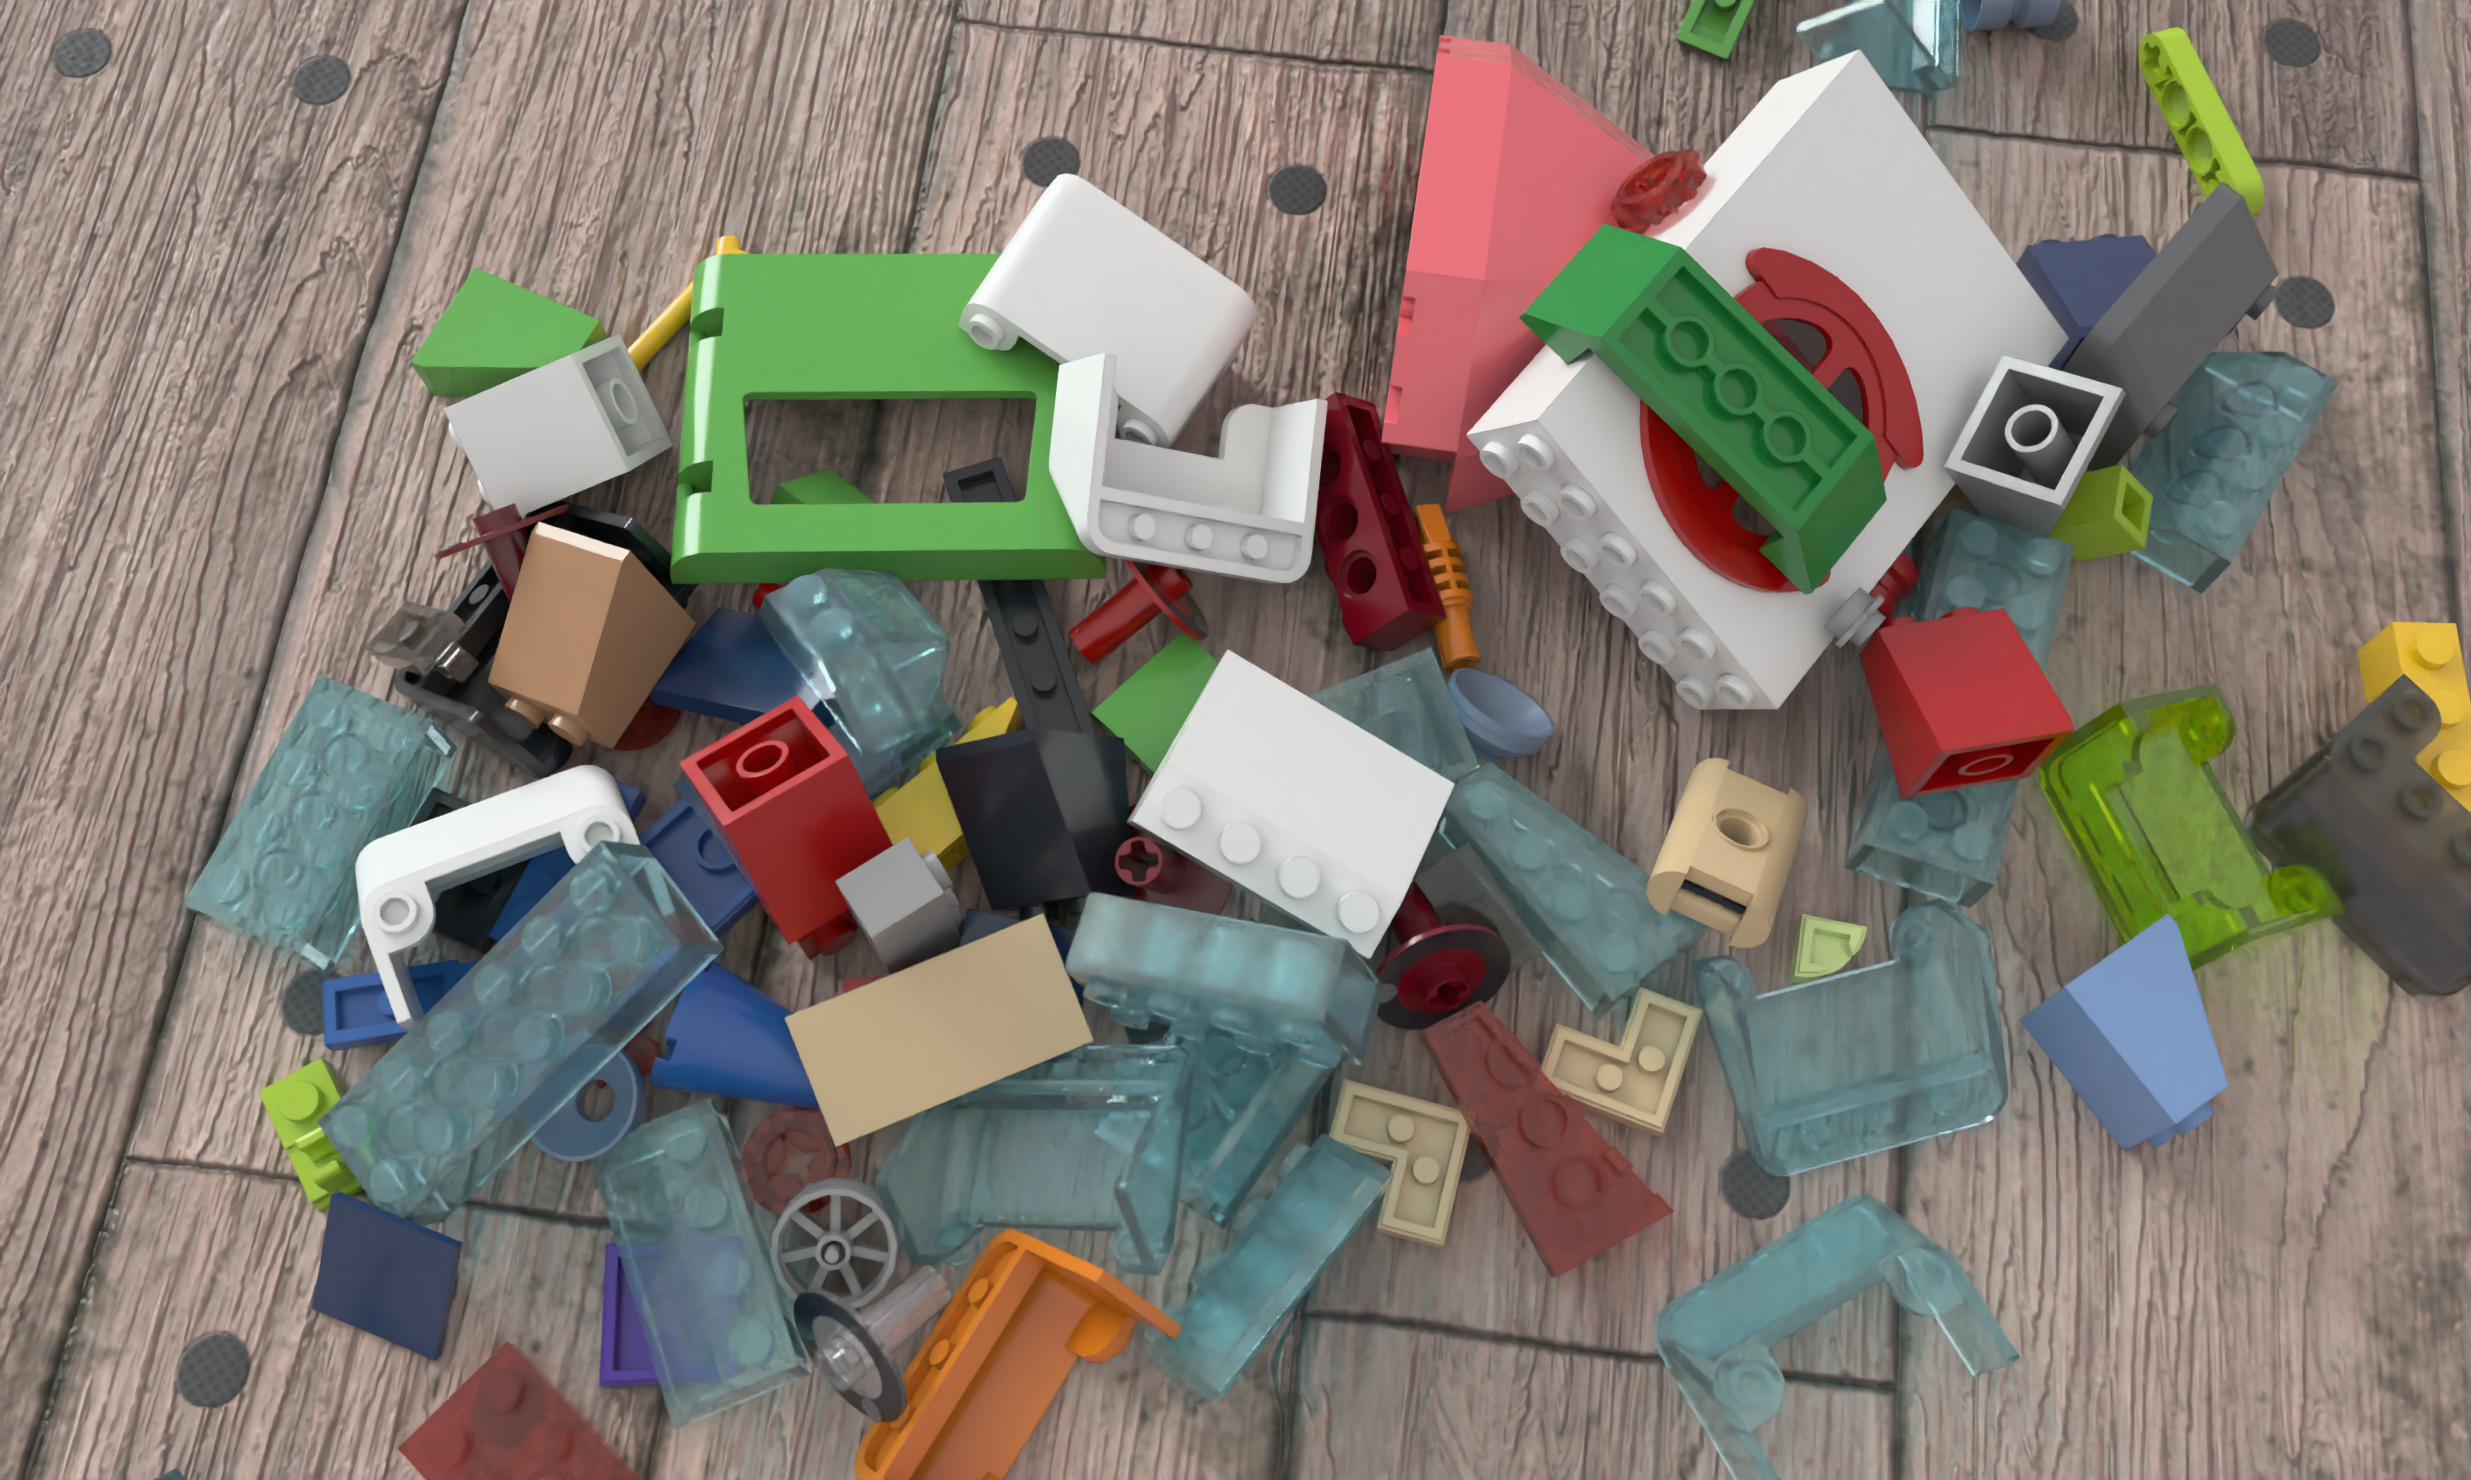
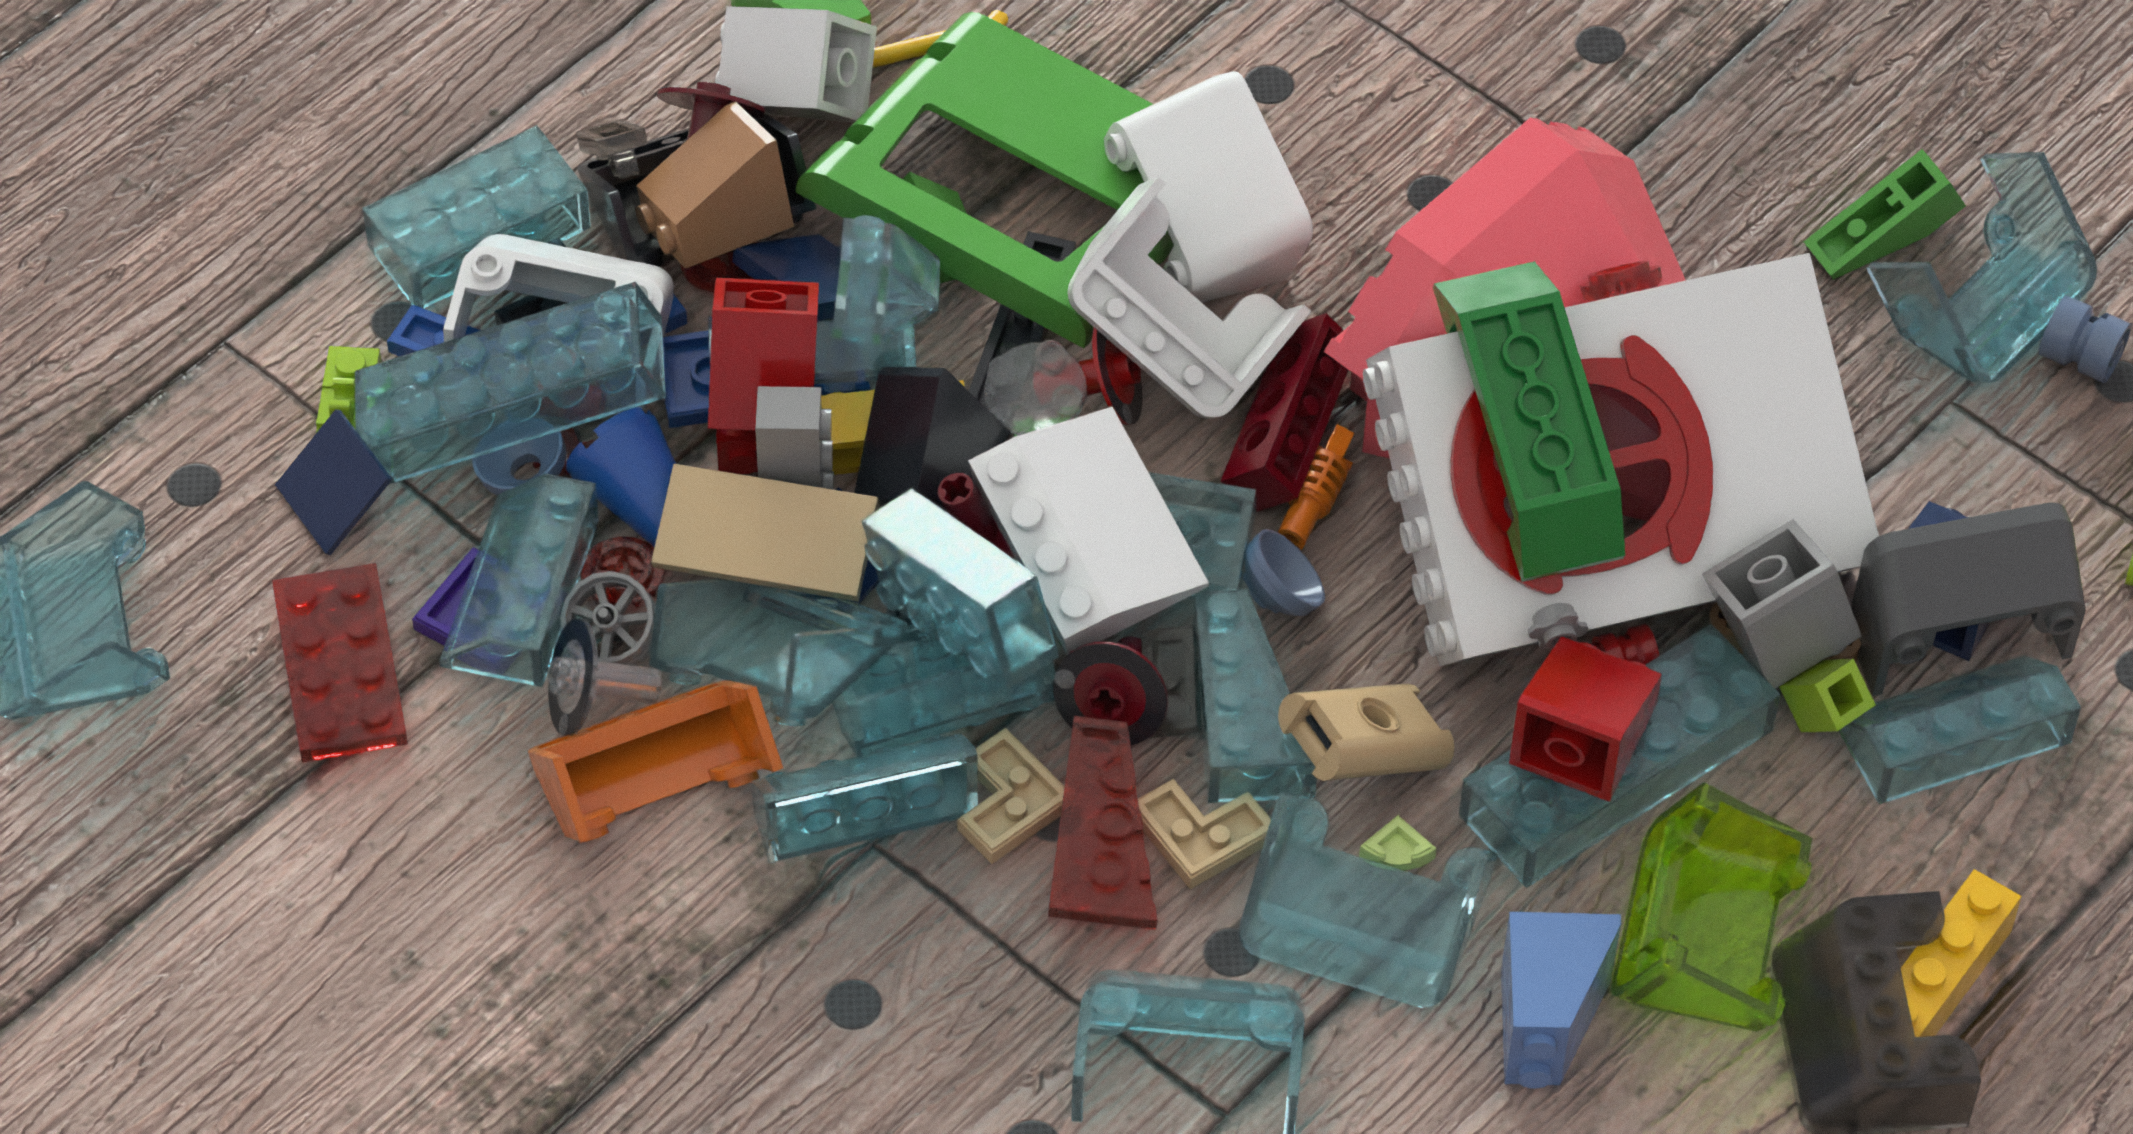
camera: 35 degrees right, 15 degrees down
(1093, 659) = (1034, 386): none -> clear dish

